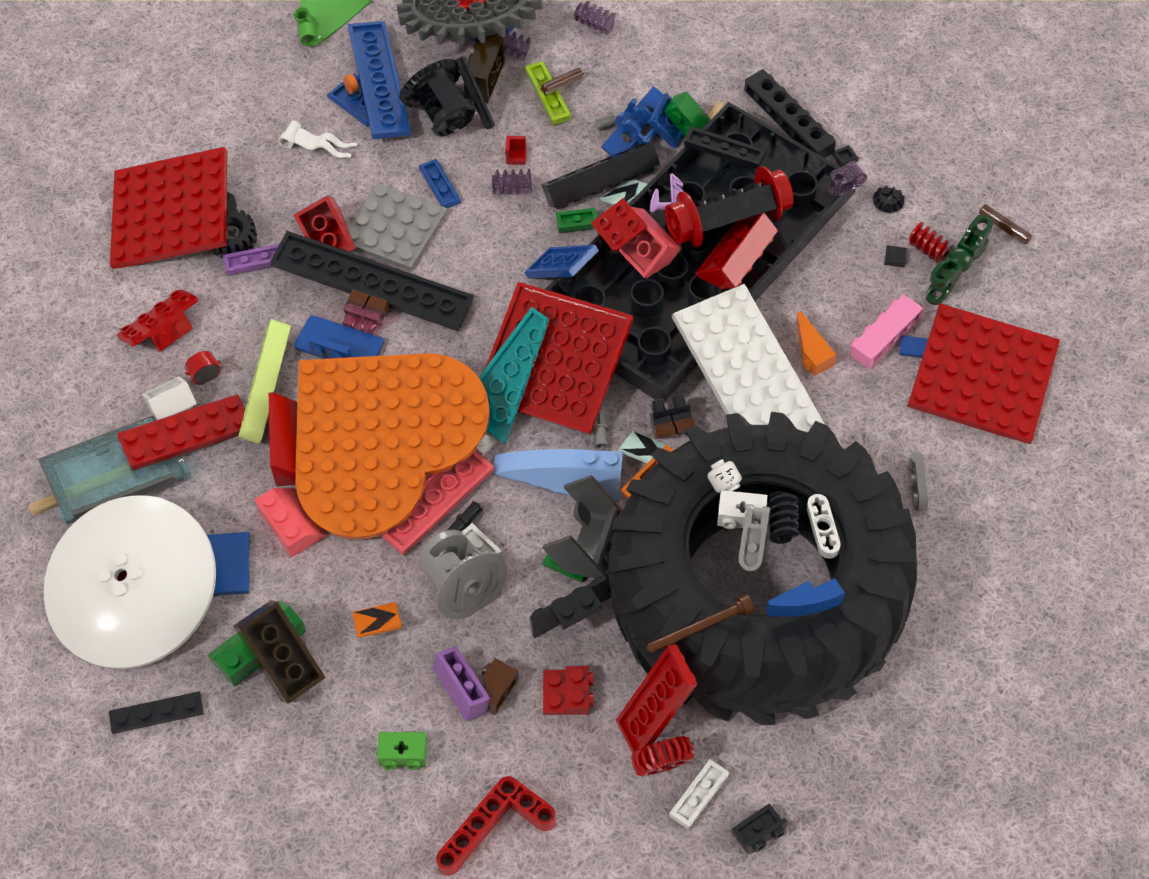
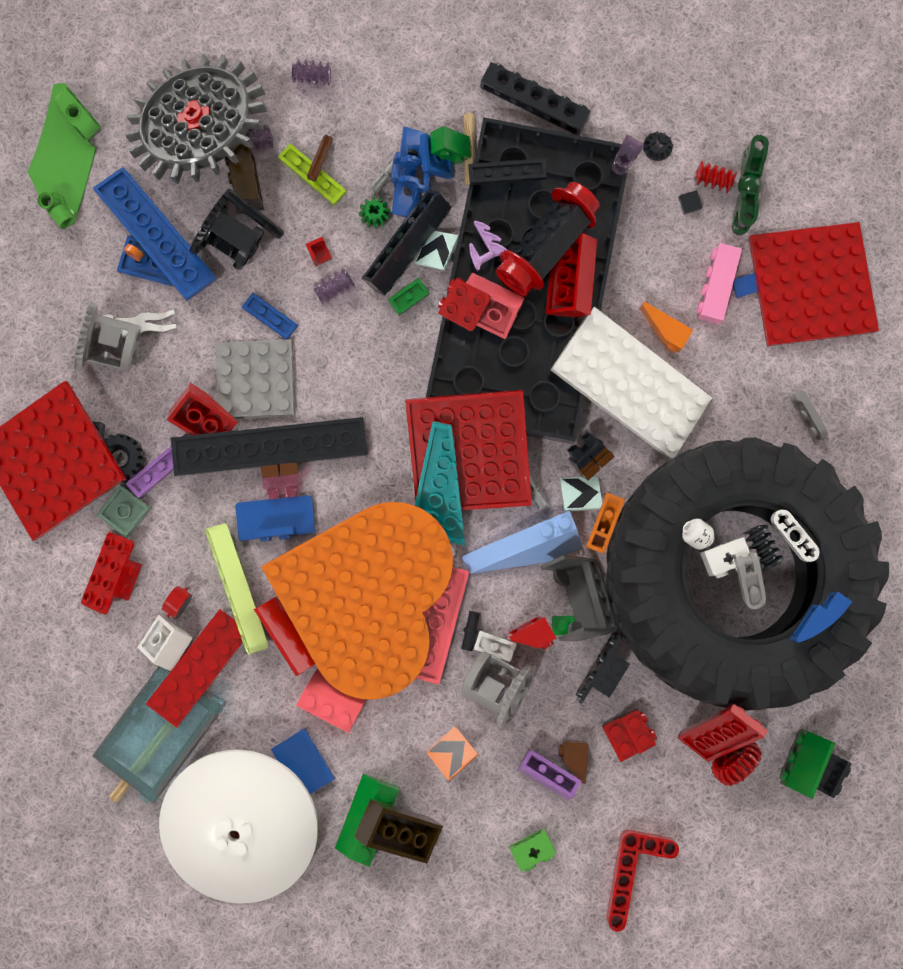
camera: 30 degrees left, 25 degrees up
(156, 712) = (324, 916): black plate -> none
(206, 277) = (123, 511): none -> sand green plate
(277, 115) = (110, 335): none -> light grey piece
(517, 531) = (533, 633): none -> red slope
(561, 261) = (425, 354): blue tile -> none
(586, 142) = (369, 217): none -> green gear
(699, 794) = (770, 768): white plate -> none
(739, 802) = (807, 763): none -> green slope
(742, 606) = (770, 647): reddish brown piece -> none
(844, 155) = (600, 118): black tile -> none
(1005, 224) = (765, 125): reddish brown axle -> none

